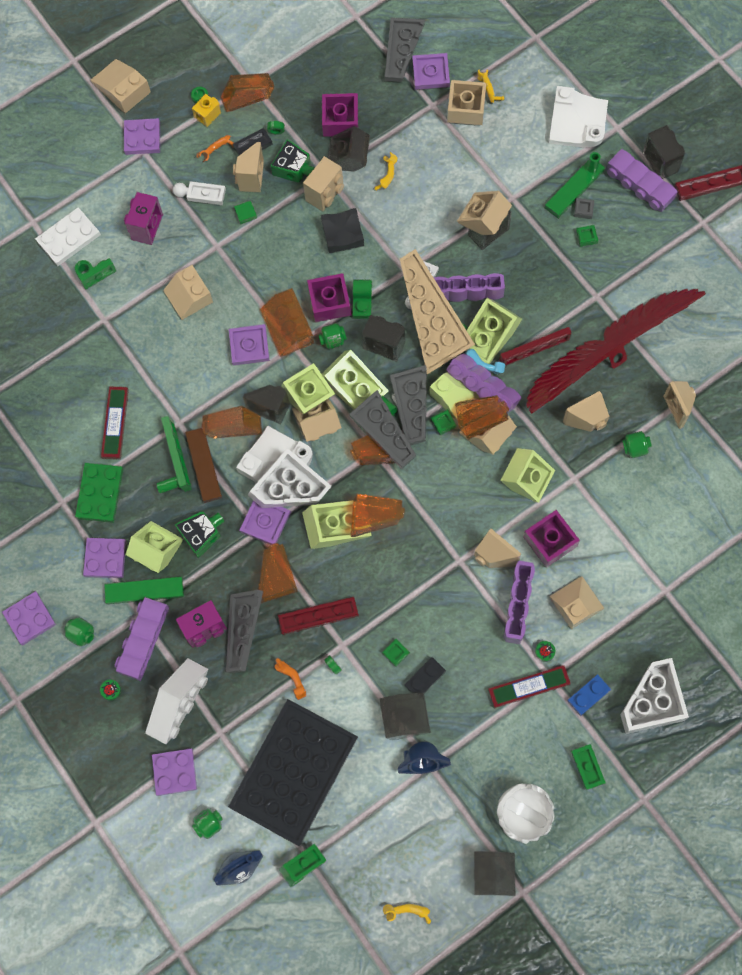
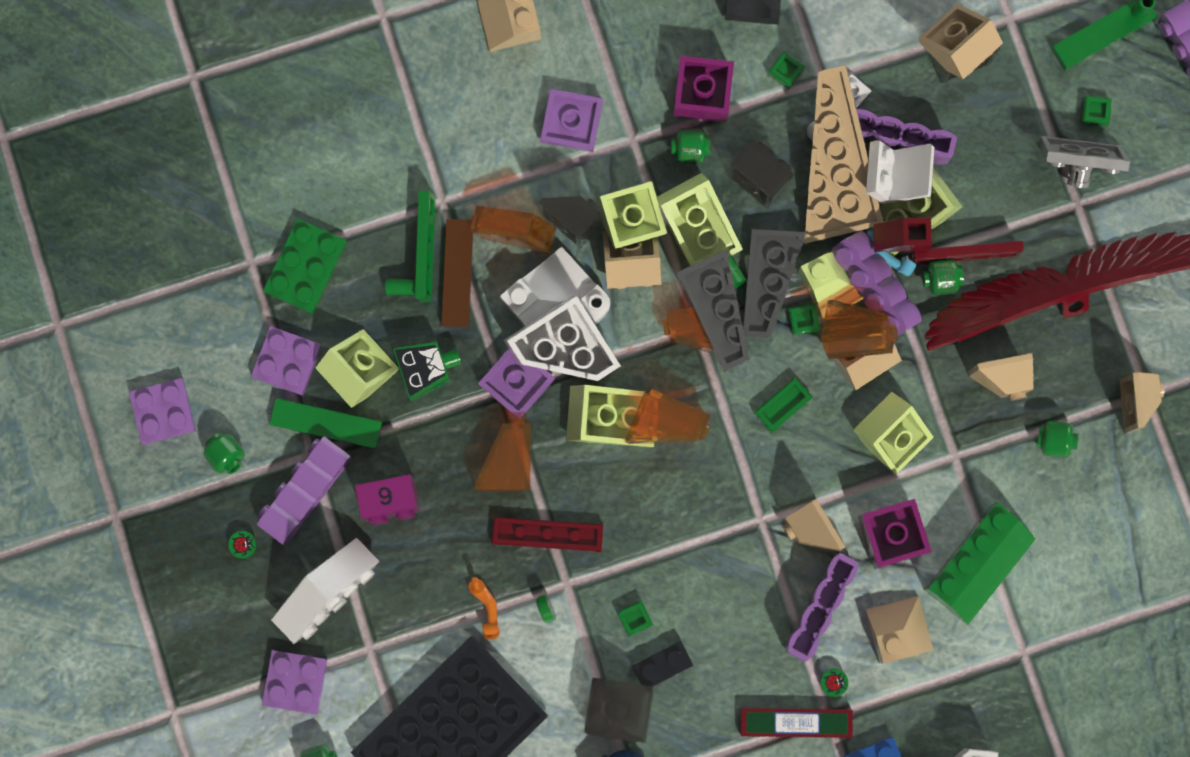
camera: 15 degrees right, 10 degrees up
(114, 423) = (354, 173): tile -> none
(242, 623) = (443, 512): dark grey wing -> none
(287, 323) = (633, 106): clear orange slope -> none
(362, 298) = (749, 104): green plate -> none
(379, 272) = (786, 70): none -> green tile
(448, 481) = (783, 405): none -> green tile
(474, 308) = (899, 173): none -> white bracket
(490, 345) = (903, 235): none -> dark red slope
(525, 366) = (943, 277): none -> green head
(584, 208) = (1106, 68): dark grey tile -> none
(589, 265) = (1082, 157): none -> light grey plate
(615, 540) = (980, 563): none -> green slope

